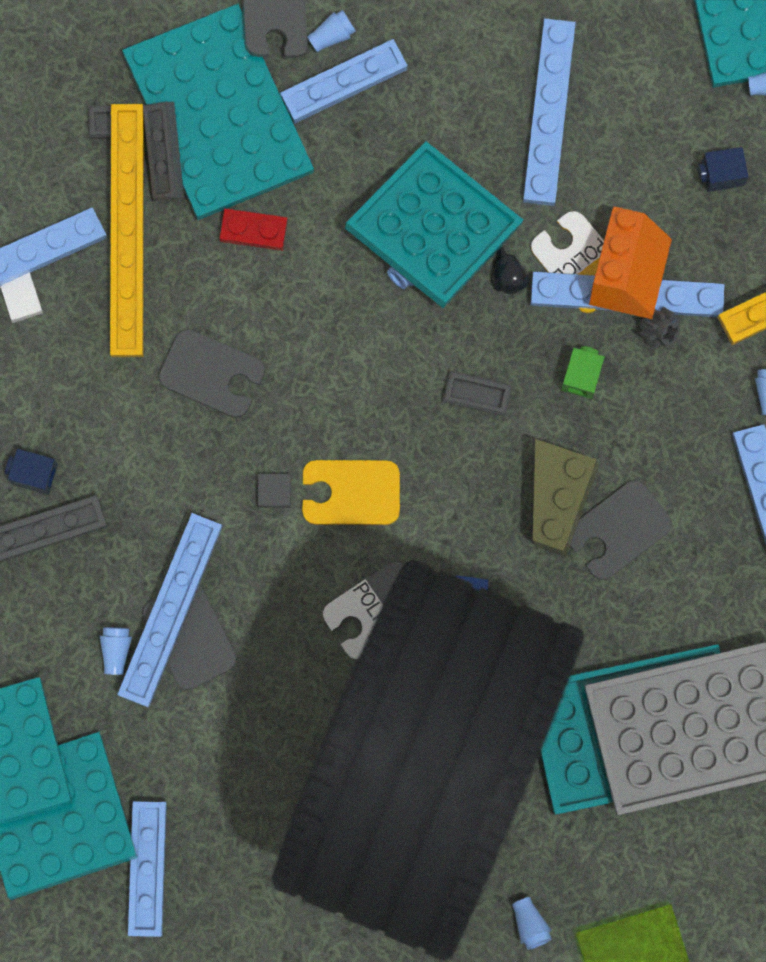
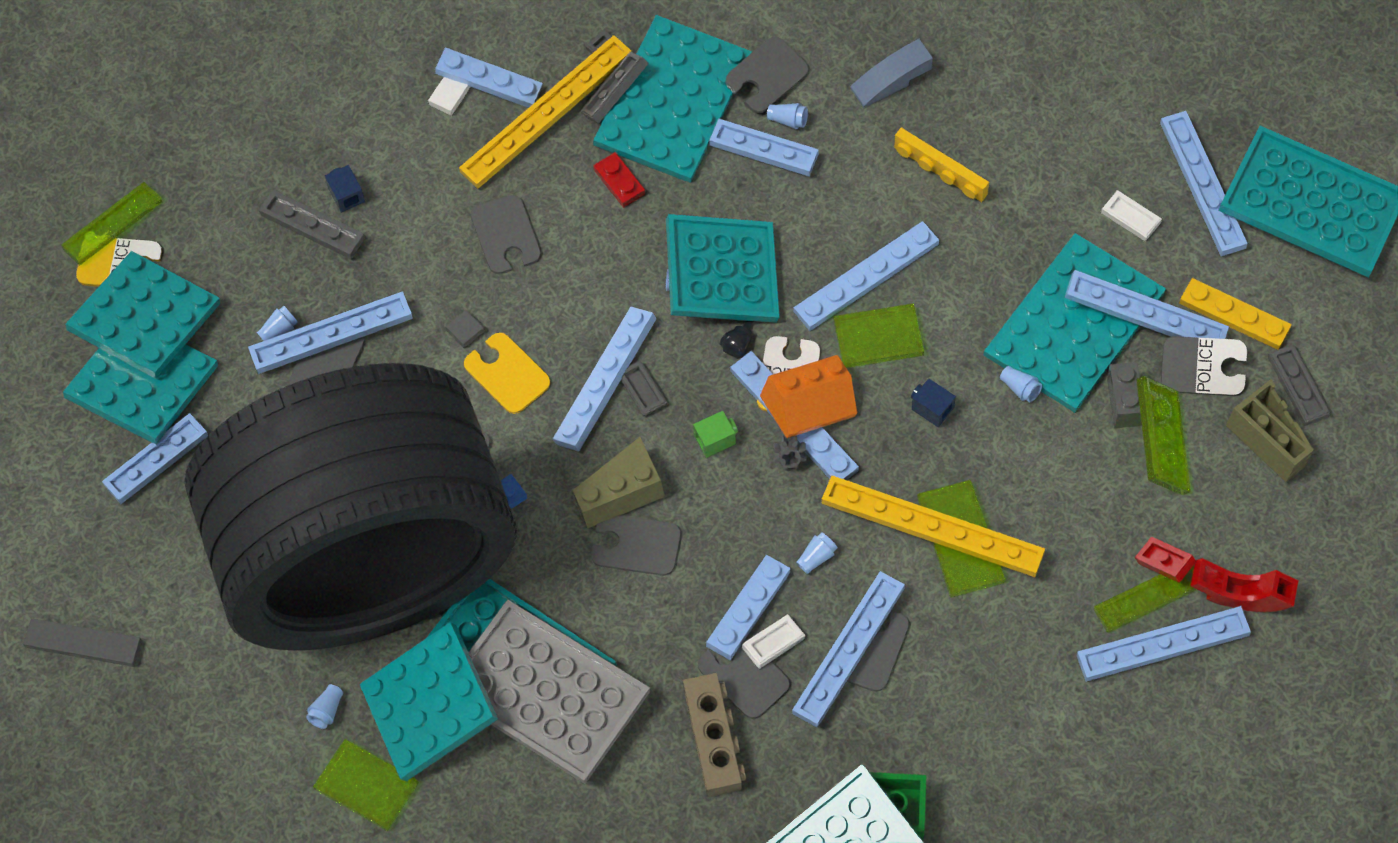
camera: 50 degrees right, 15 degrees down
(439, 416) = (604, 379): none -> light blue plate
(615, 154) = (878, 335): none -> clear neon green tile
(618, 835) = (428, 701): none -> teal plate

